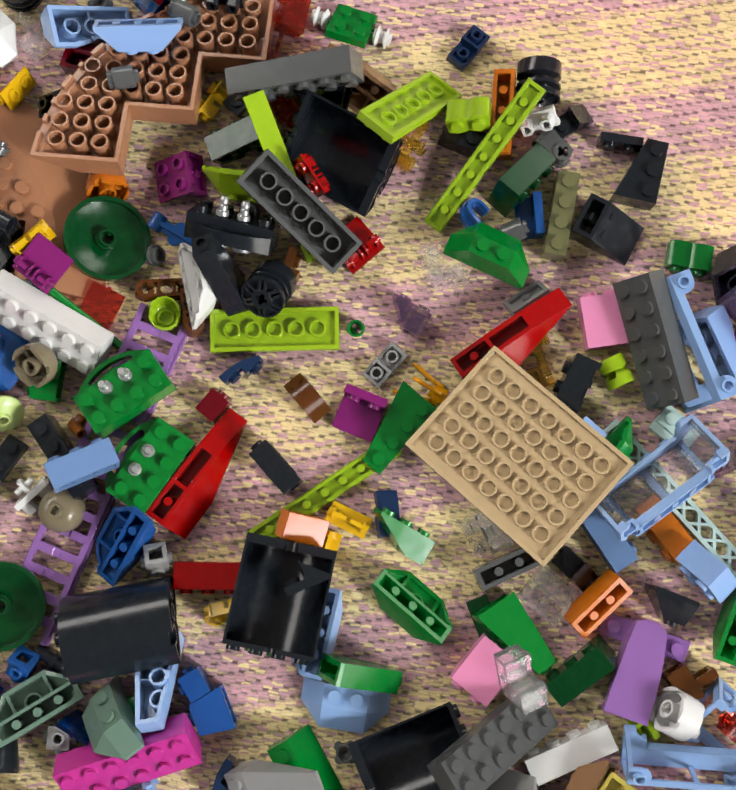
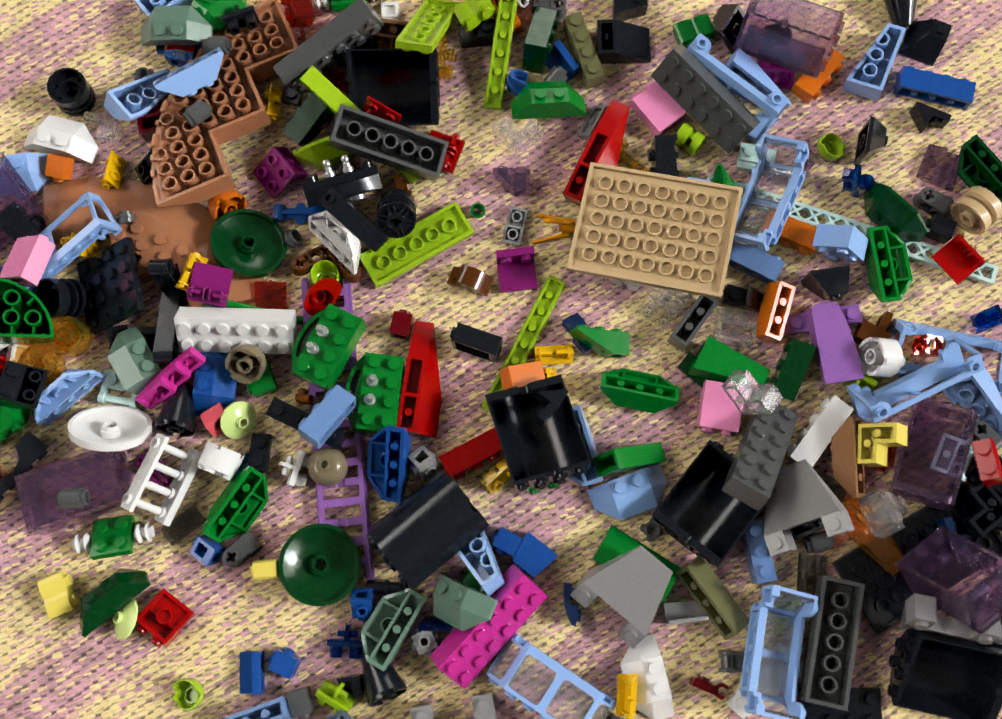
camera: 30 degrees left, 5 degrees down
(146, 334) = (321, 294): none -> red piece
(250, 366) = (411, 282): dark blue slope -> none
(386, 64) = (390, 9): none -> white tile
(402, 420) = (552, 261): green wing -> none

